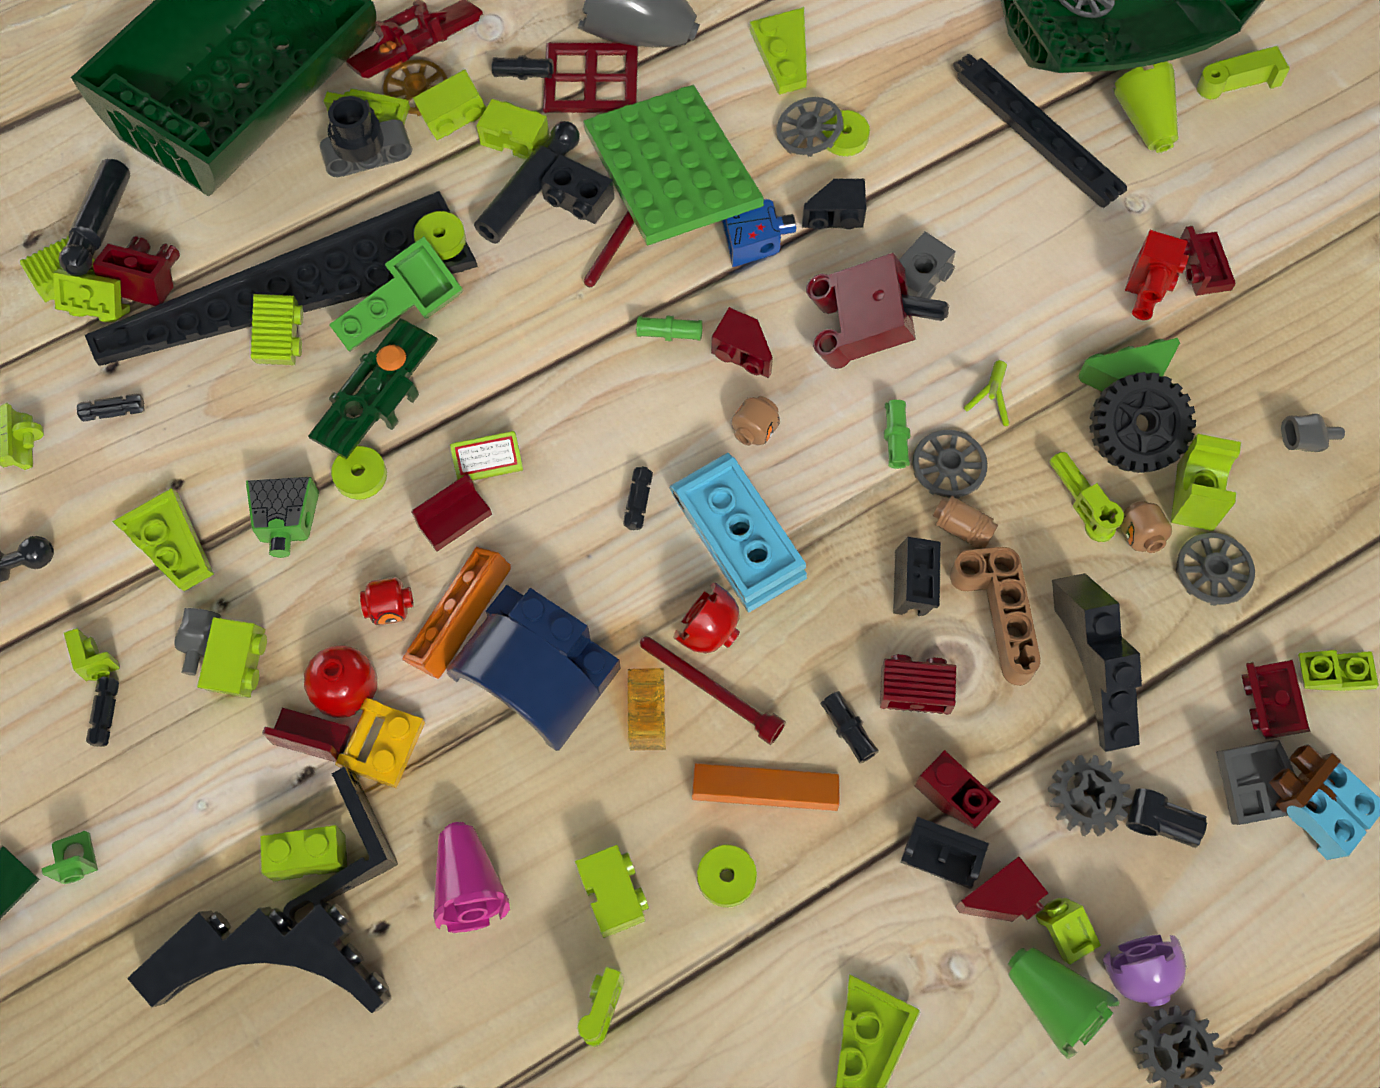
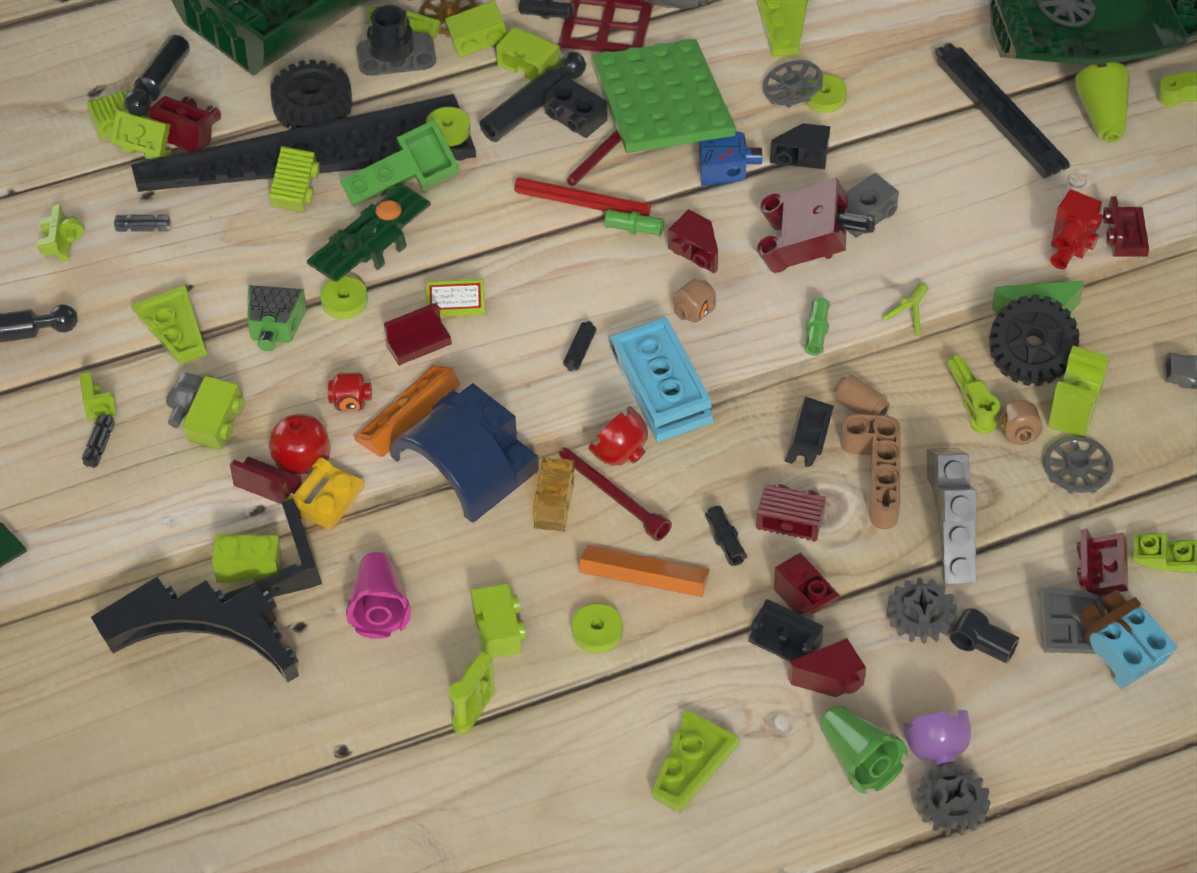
camera: 10 degrees right, 15 degrees down
(76, 867) = (55, 541): bright green bracket -> none
(278, 213) = (311, 94): none -> black wheel
(605, 304) = (579, 197): none -> red axle
(949, 464) = (860, 356): dark grey wheel -> none
(1069, 929) = (881, 702): lime bracket -> none

